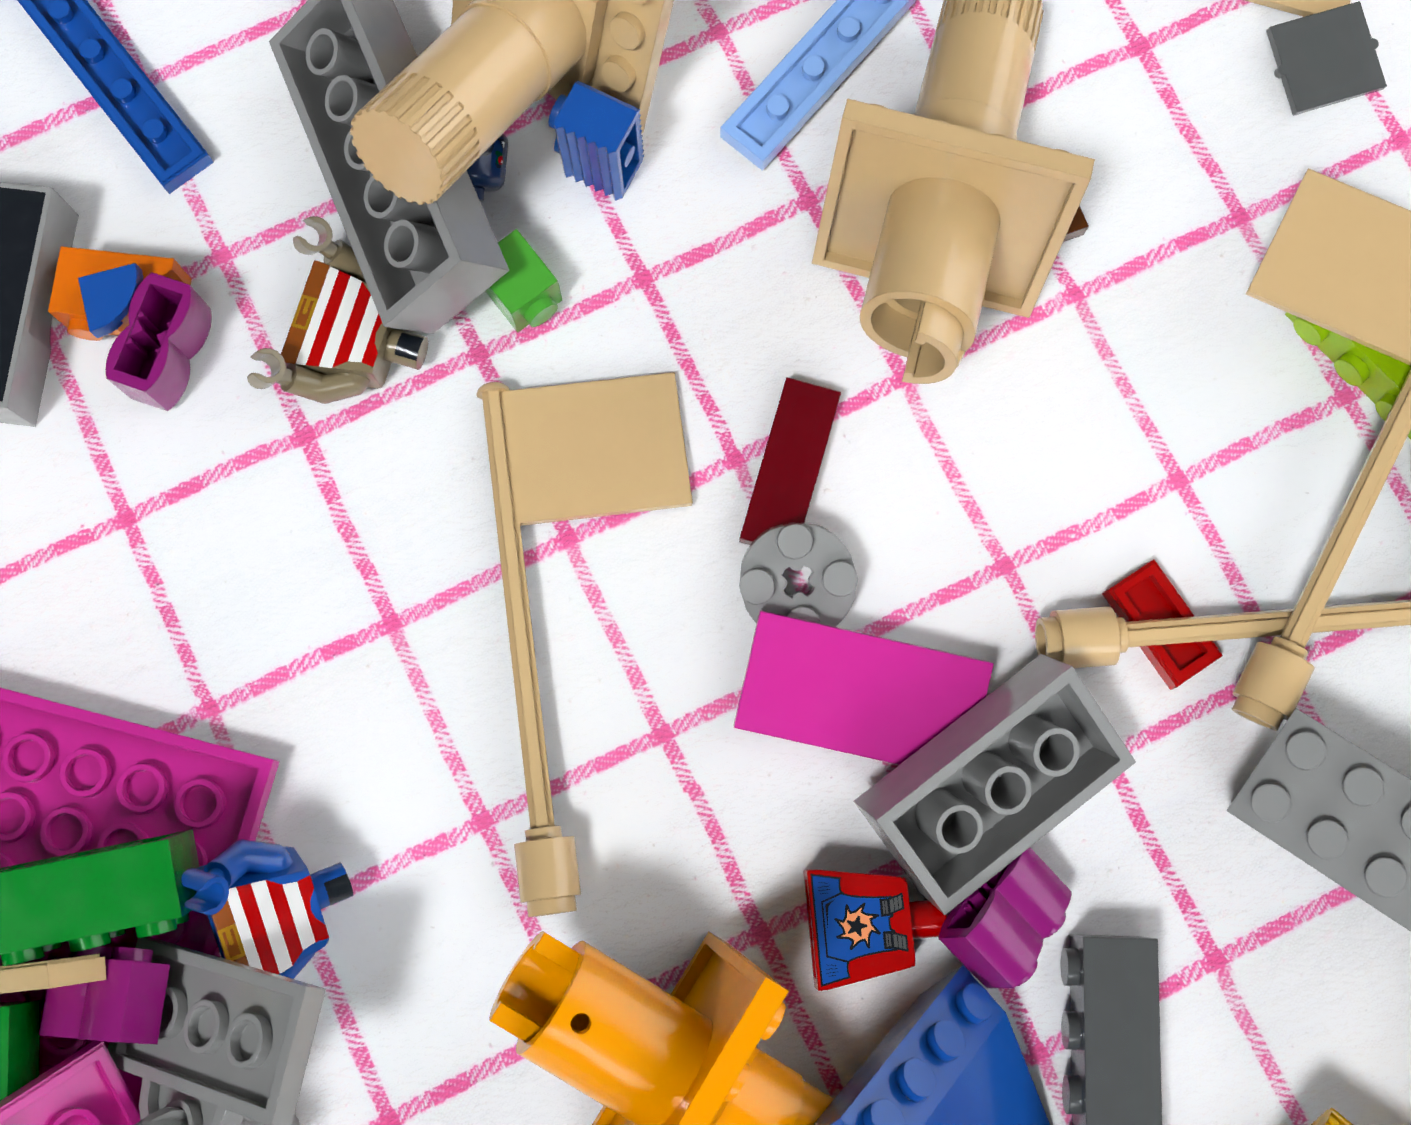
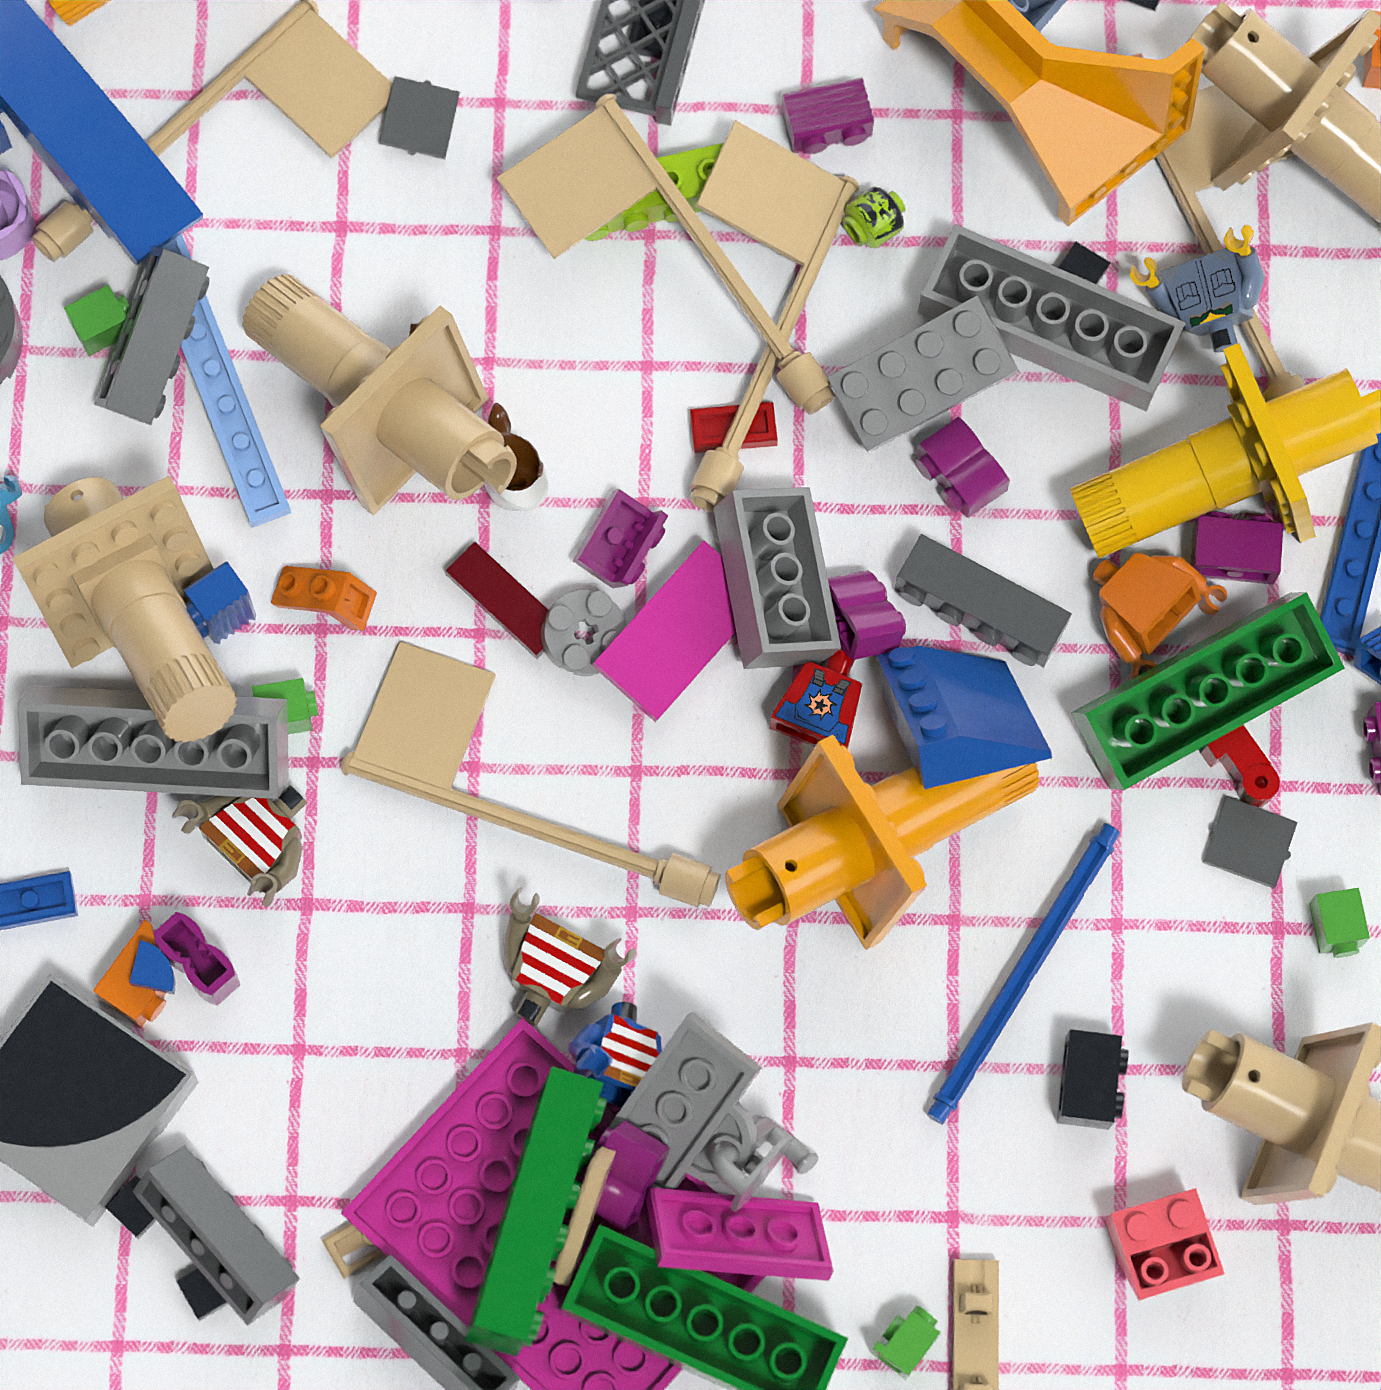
camera: 65 degrees left, 5 degrees down
(359, 765) = (555, 964): none -> torso
(681, 259) = (325, 592): none -> orange bracket
(938, 563) = (620, 540): none -> magenta bracket
(961, 400) = (530, 478): none -> reddish brown hair
(1277, 943) = (962, 468): none -> magenta brick

